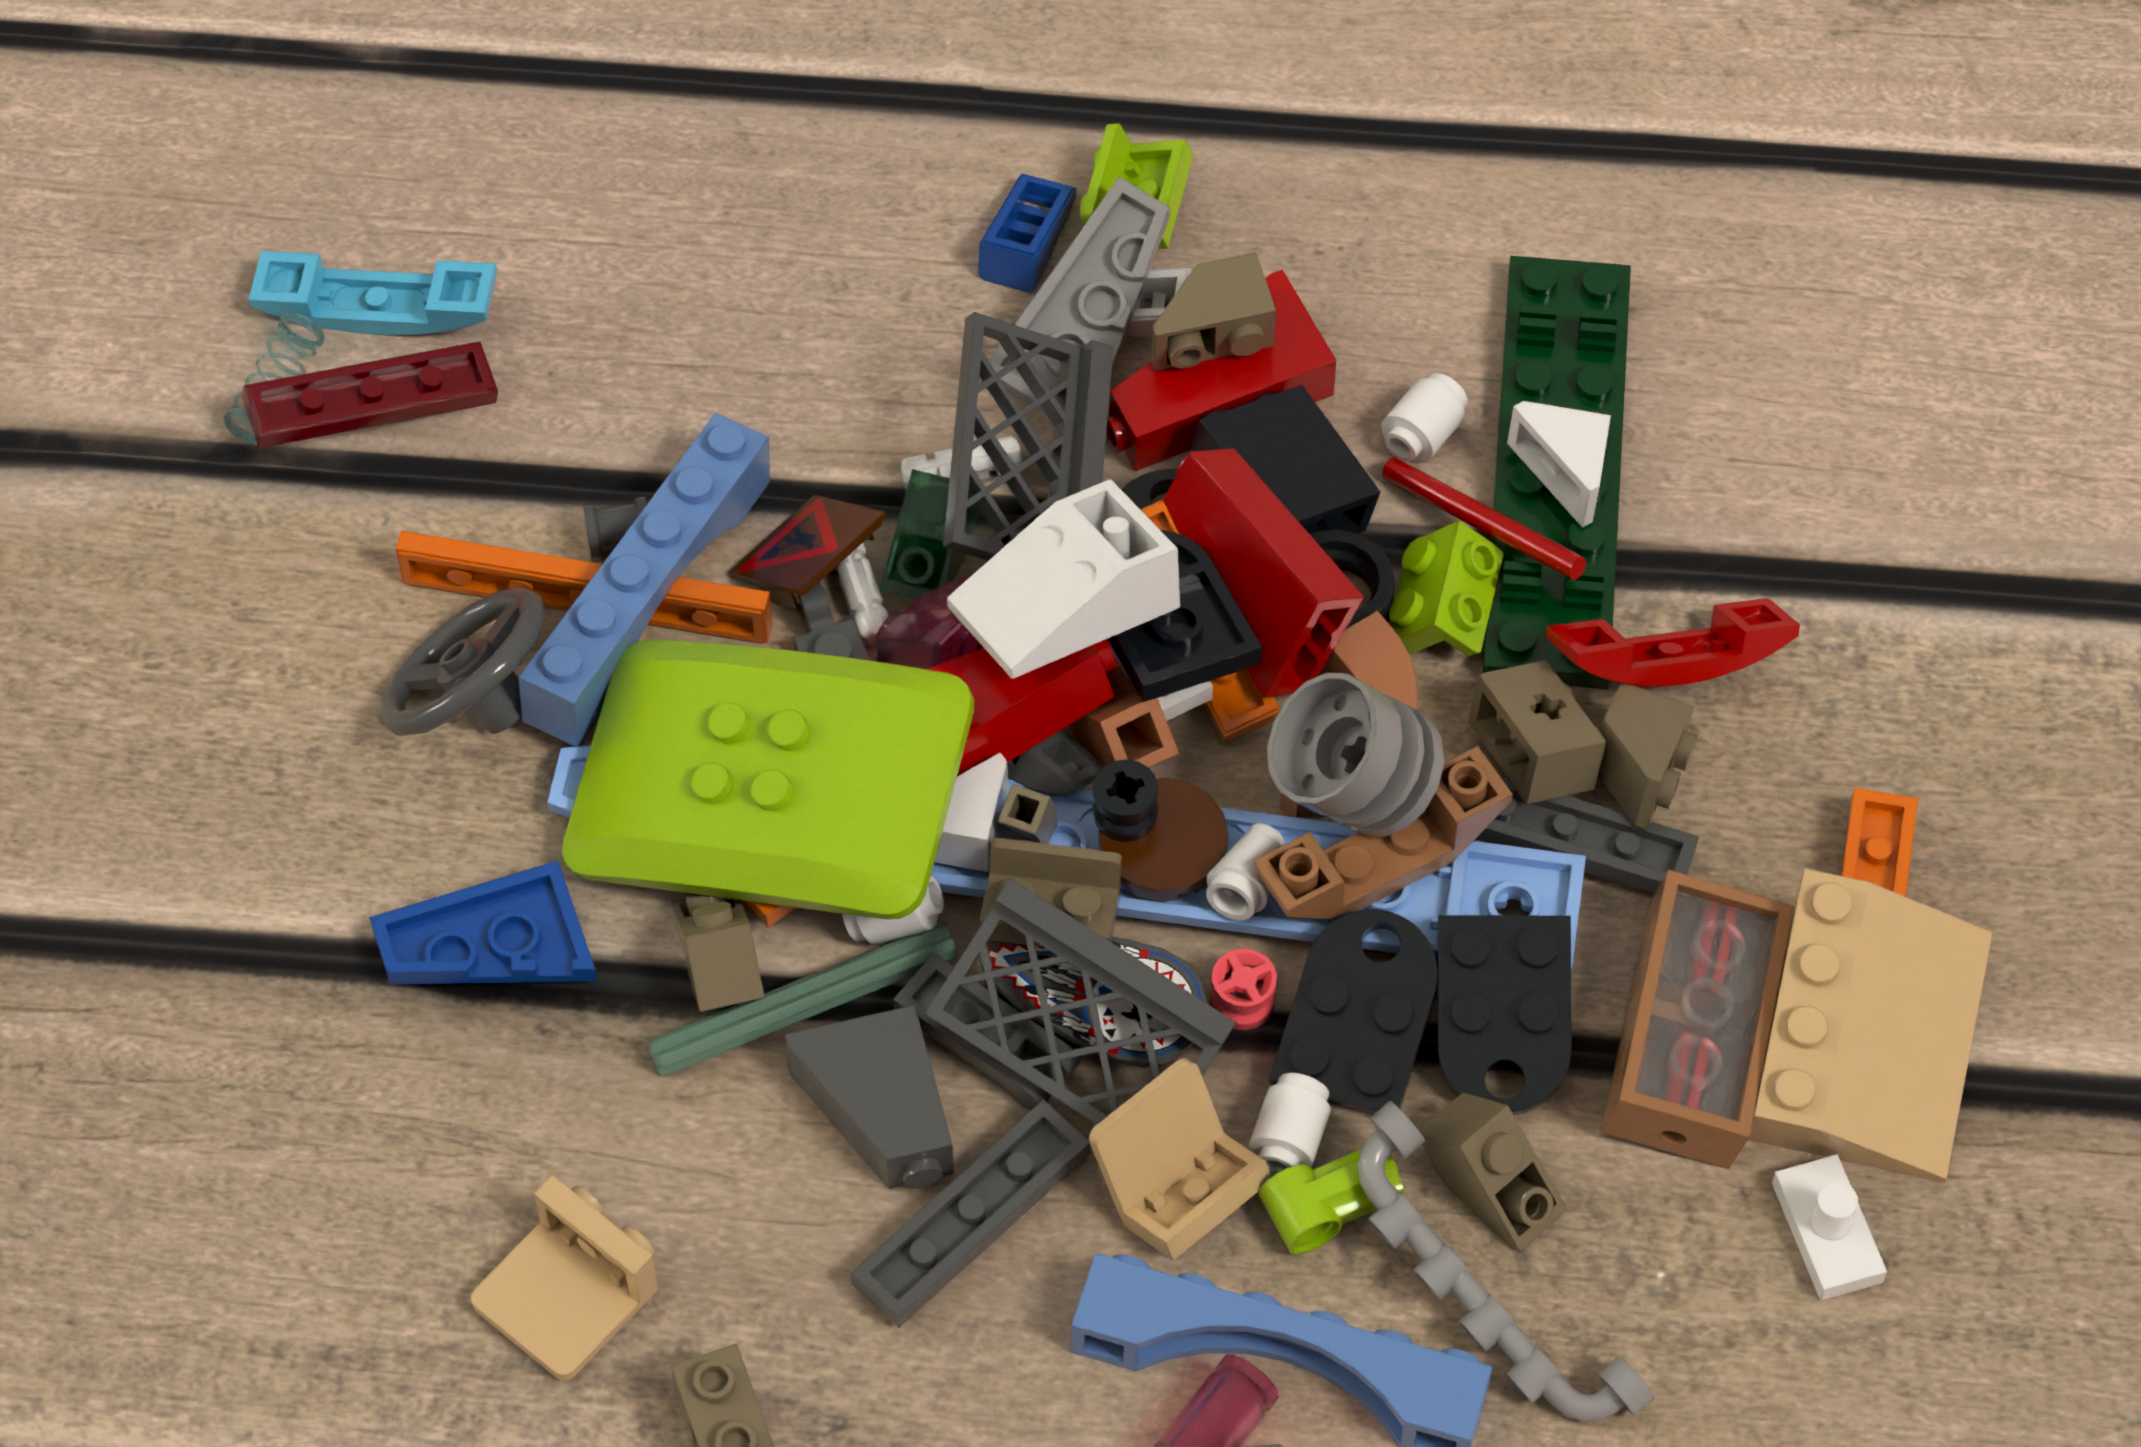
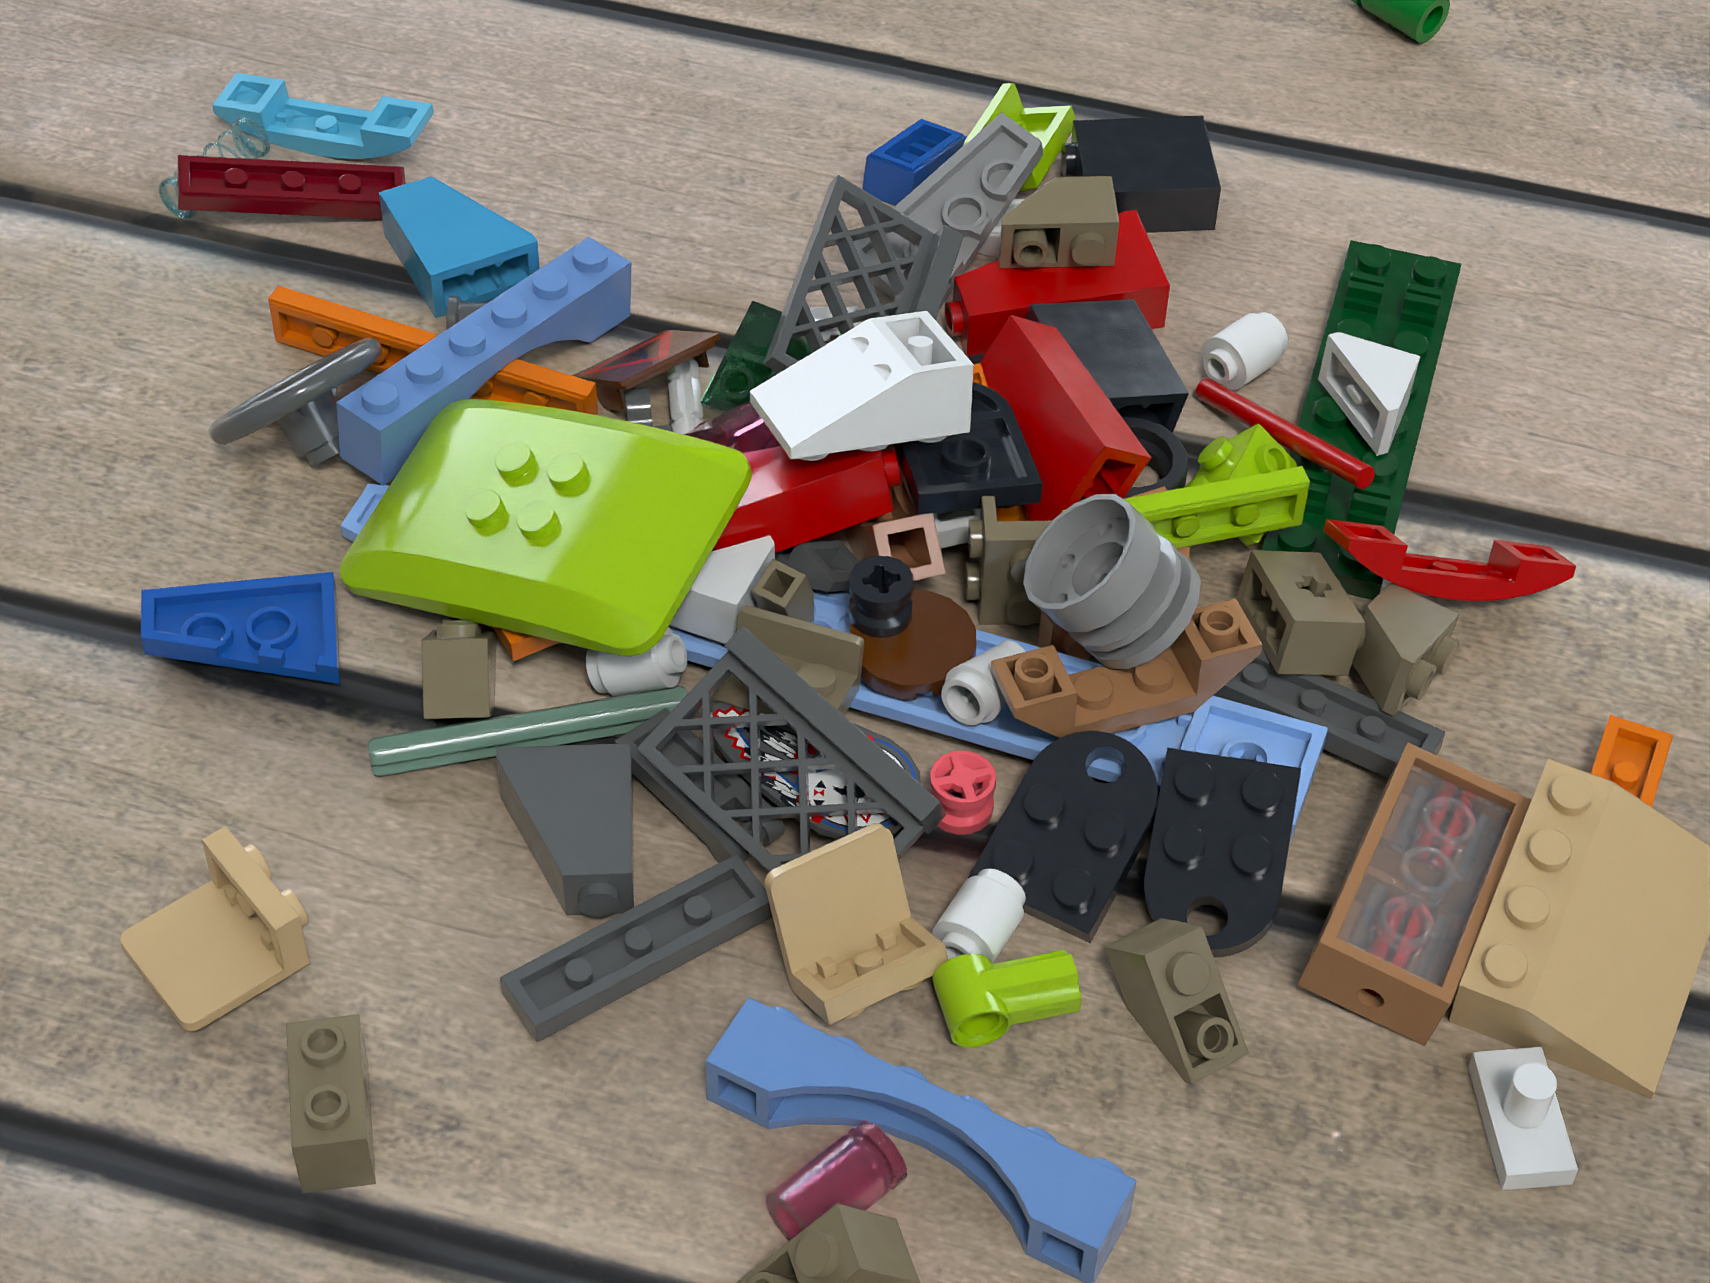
camera: 10 degrees right, 10 degrees down
(565, 436) = (454, 244): none -> dark azure slope
(1235, 734) = (1000, 567): none -> dark tan bracket
(1279, 201) = (1155, 166): none -> black brick
(1429, 642) = (1227, 507): none -> lime tile
(1487, 1320) = (1142, 1138): light grey bar -> none

